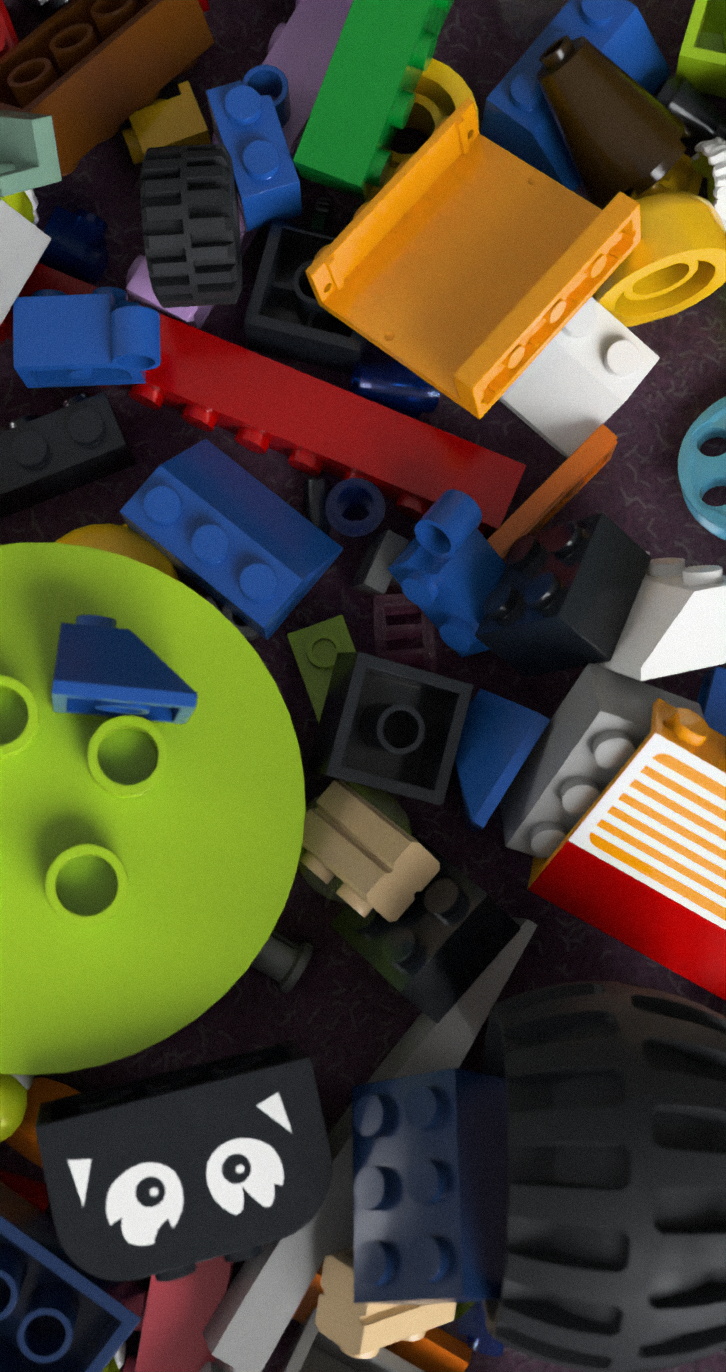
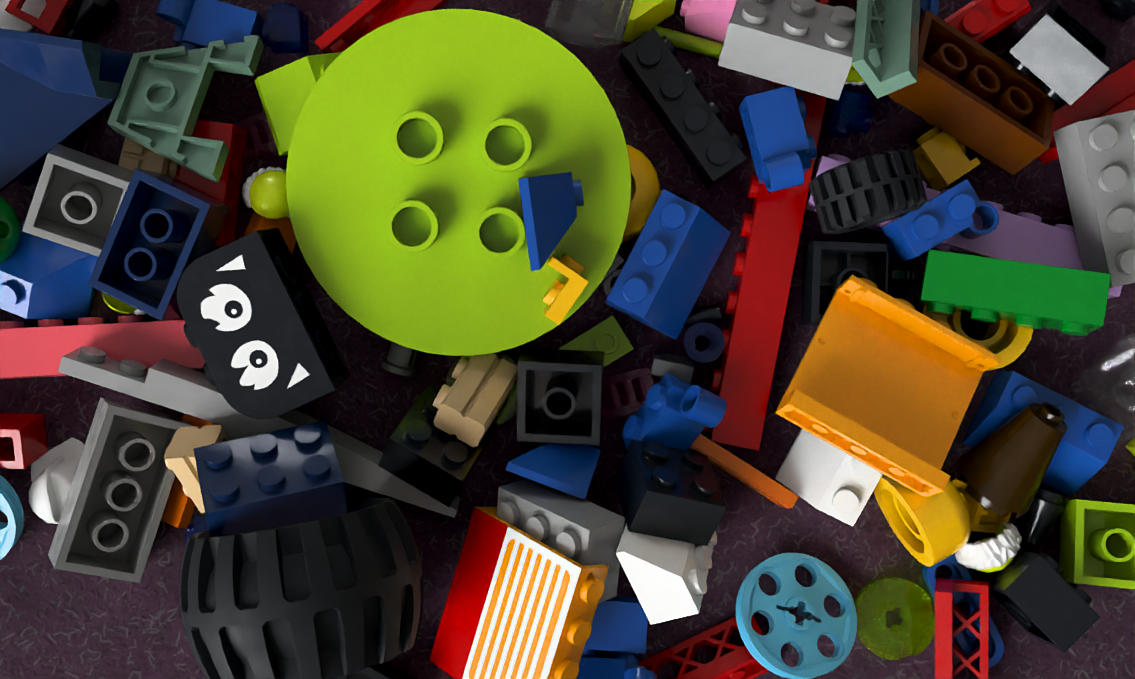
camera: 75 degrees right, 5 degrees up
(243, 681) = (563, 295): none -> yellow bracket
(394, 387) = (794, 344): clear blue cone -> none

